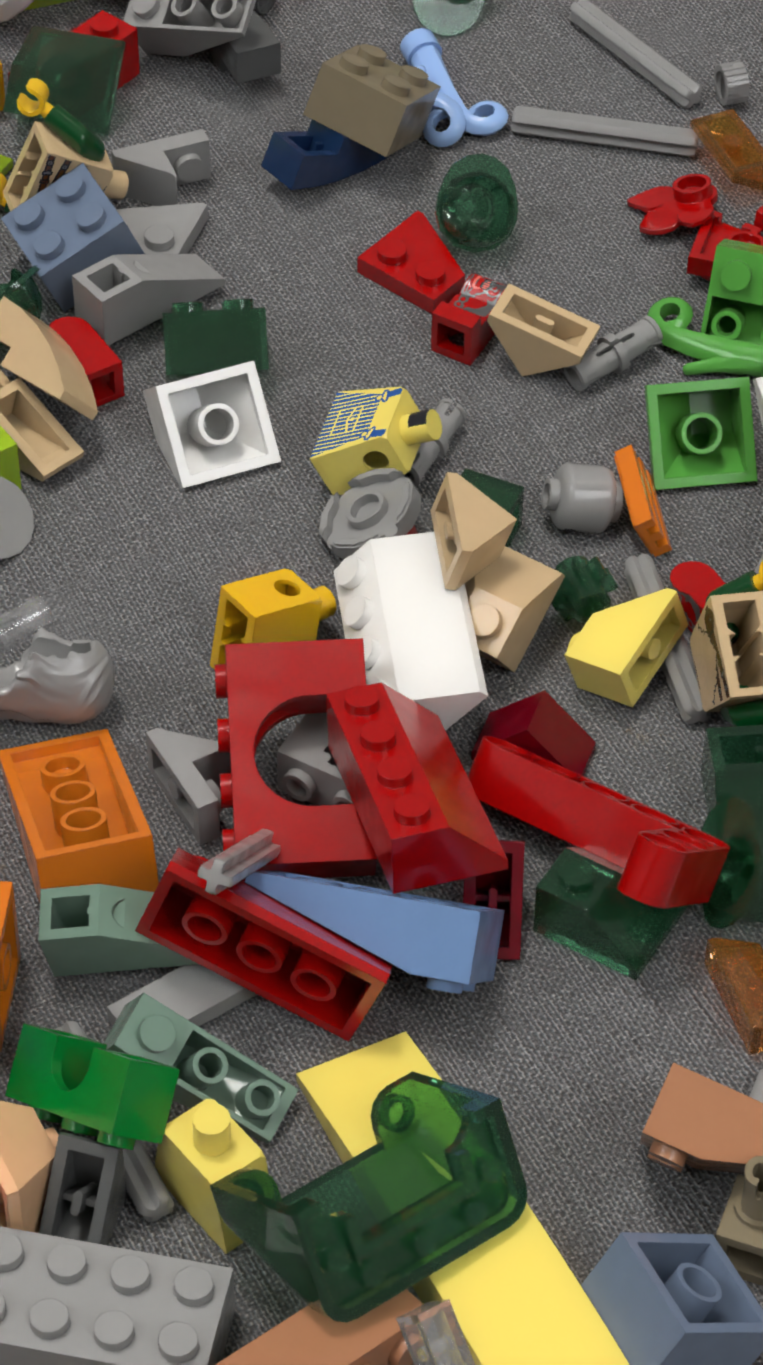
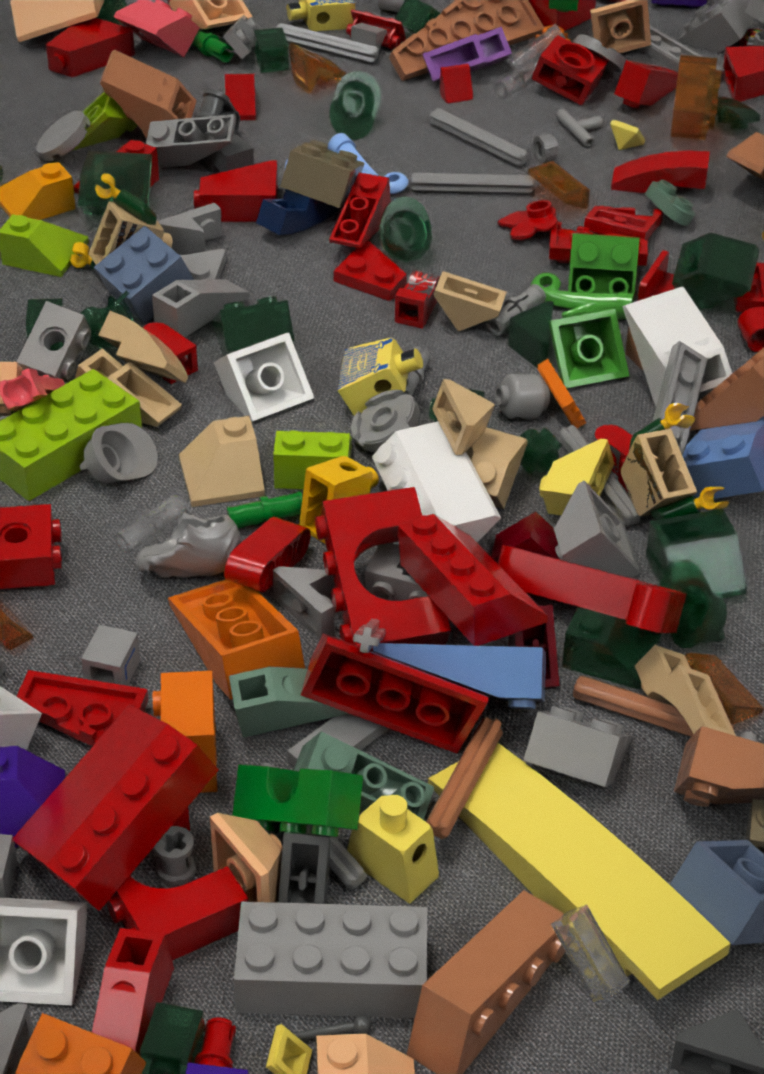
camera: 10 degrees left, 5 degrees down
(120, 553) = (223, 463): none -> tan slope
(158, 694) = (267, 548): none -> red beam
(162, 634) = (265, 508): none -> green pin
(240, 549) = (299, 450): none -> lime slope
(247, 109) = (239, 191): none -> red slope
(340, 1083) = (464, 777): none -> nougat axle
(392, 1213) = (543, 843): clear green windscreen -> none
(419, 165) = (362, 211): none -> red slope
(516, 1056) = (576, 746): none -> light grey slope
(620, 395) = (531, 333): none -> clear green slope
(628, 736) = (594, 535): none -> light grey slope
(643, 1018) = (631, 704): none -> nougat axle
(694, 1001) = (670, 679): none -> tan slope

